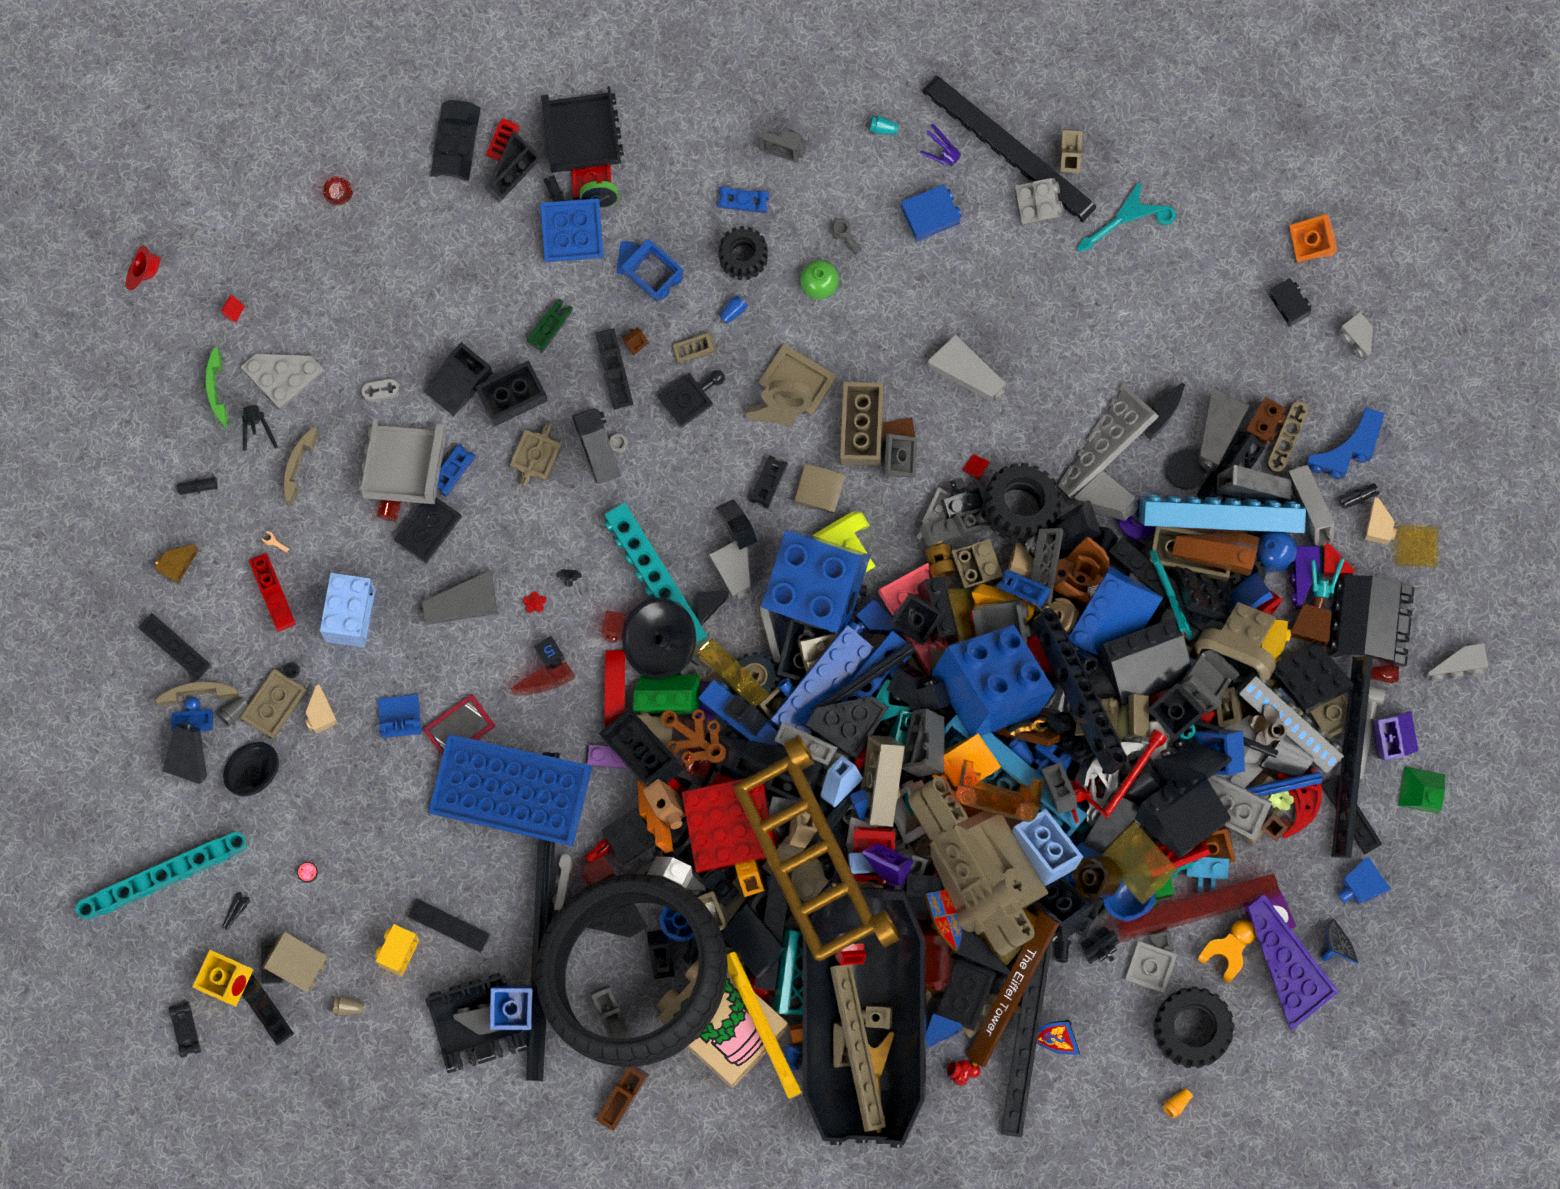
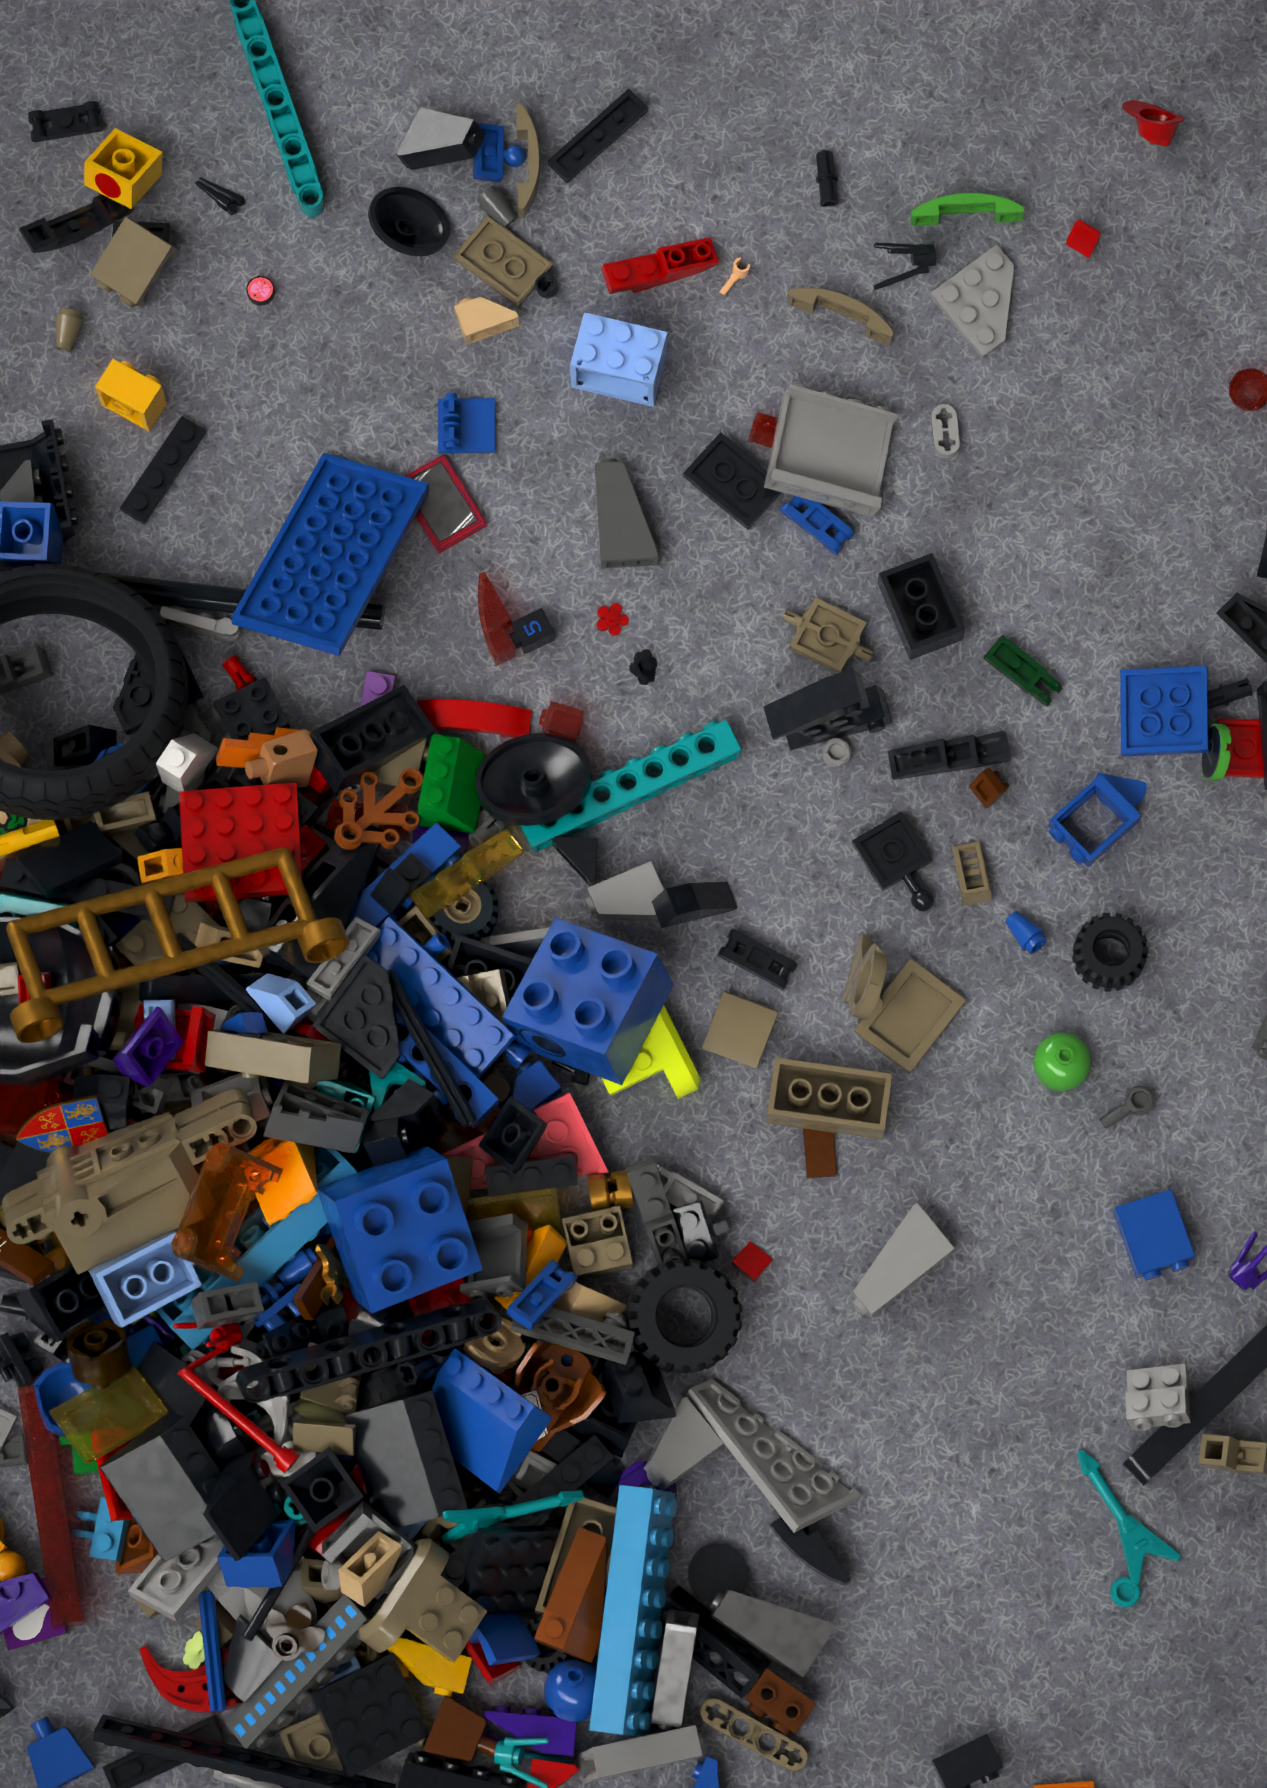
camera: 95 degrees right, 0 degrees up
(176, 562) = (715, 142): pearl gold slope -> none
(457, 379) = (953, 535): black slope -> none
(597, 871) = (208, 671): clear red brick -> none
(743, 200) = (1196, 962): blue plate -> none
(900, 456) = (776, 1148): dark grey slope -> none
(1222, 676) = (369, 1568): none -> tan slope
(1229, 703) = (330, 1575): none -> light grey tile
(1276, 824) = (159, 1636): reddish brown brick -> none

